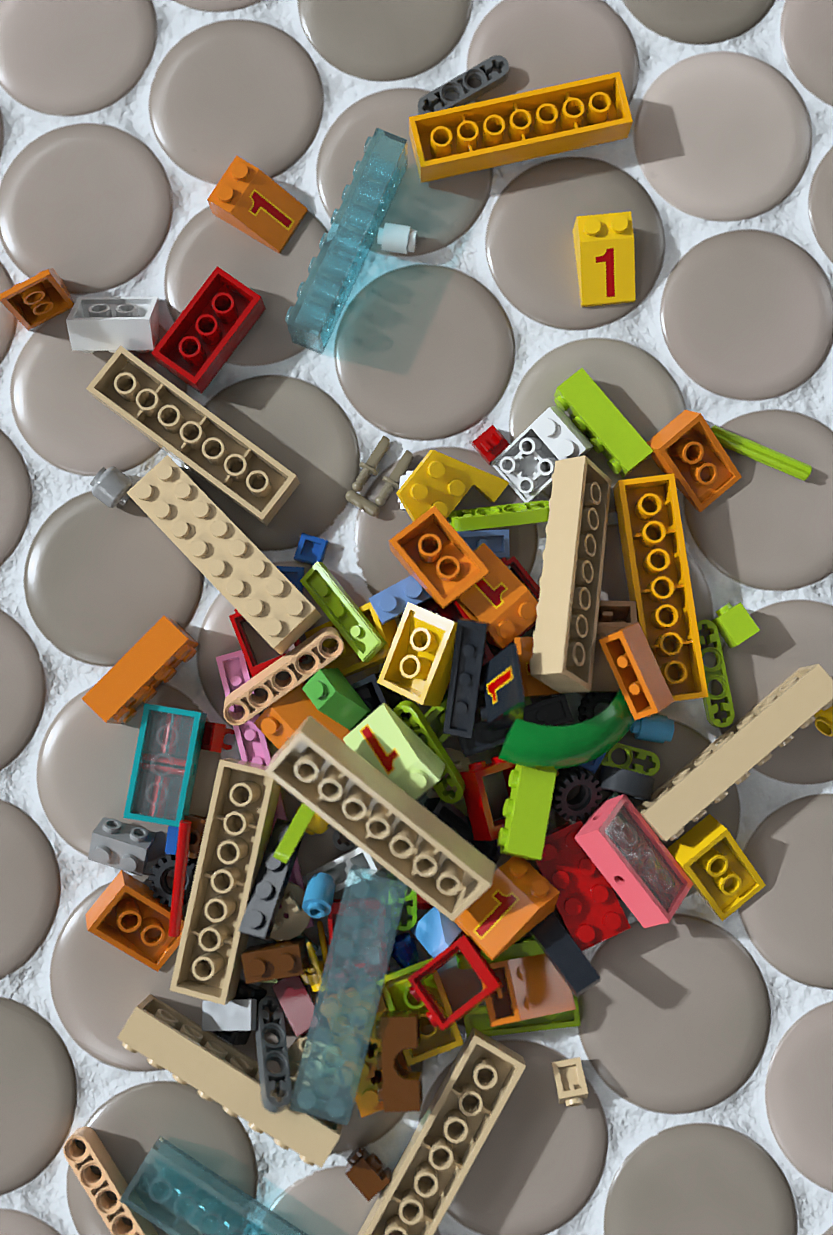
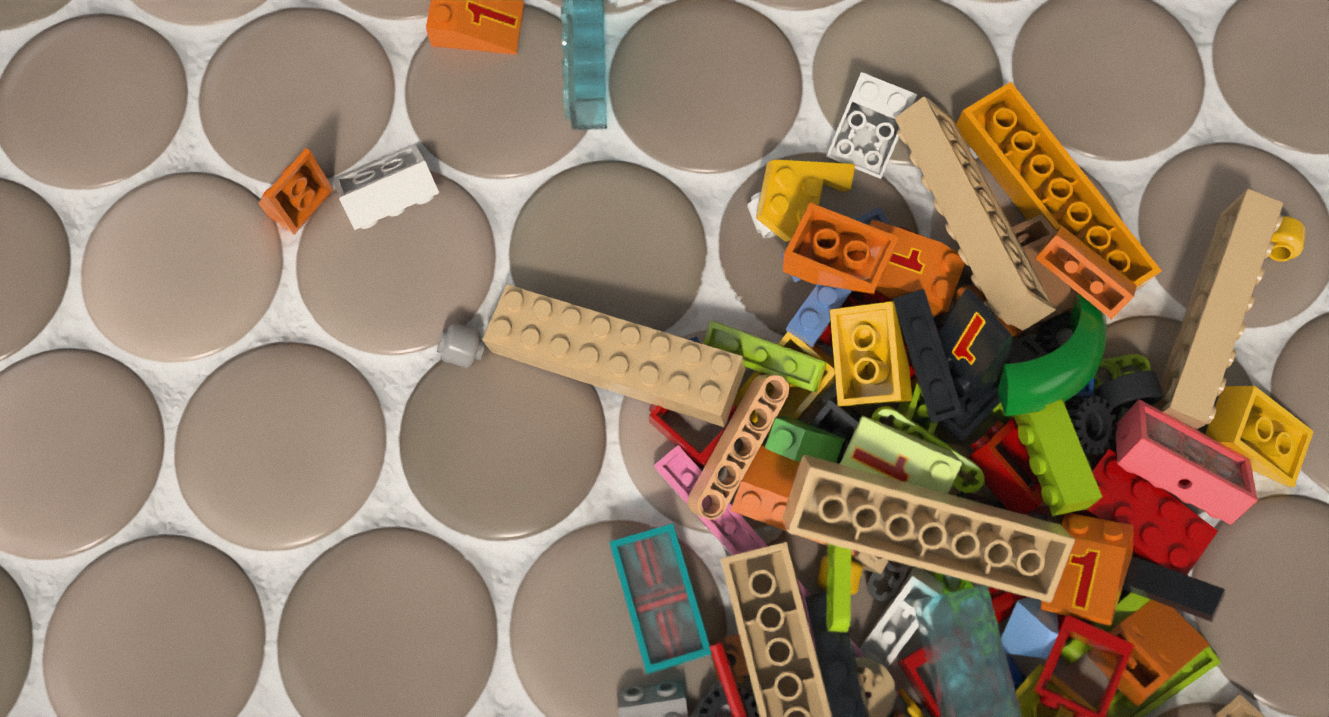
camera: 30 degrees left, 10 degrees down
(141, 672) = (586, 512): orange brick -> none
(172, 839) = (707, 674): blue tile -> none
(193, 435) = (521, 254): tan brick -> none
(209, 330) = (486, 150): red brick -> none
(214, 737) = (694, 547): red tile -> none
(310, 549) = (693, 316): blue tile -> none
(319, 895) = (893, 654): dark azure brick -> none
(369, 468) = (740, 217): dark tan piece -> none
(490, 444) = (817, 138): red tile -> none
(499, 516) = (875, 191): lime beam -> none
(602, 423) = (914, 70): lime brick -> none
(653, 728) = (1124, 330): dark azure brick -> none
(695, 458) = (1011, 54): orange slope -> none
(718, 673) = (1157, 253): lime beam -> none
(734, 624) = (1141, 198): lime brick -> none
(762, 454) = (1070, 35): lime axle -> none

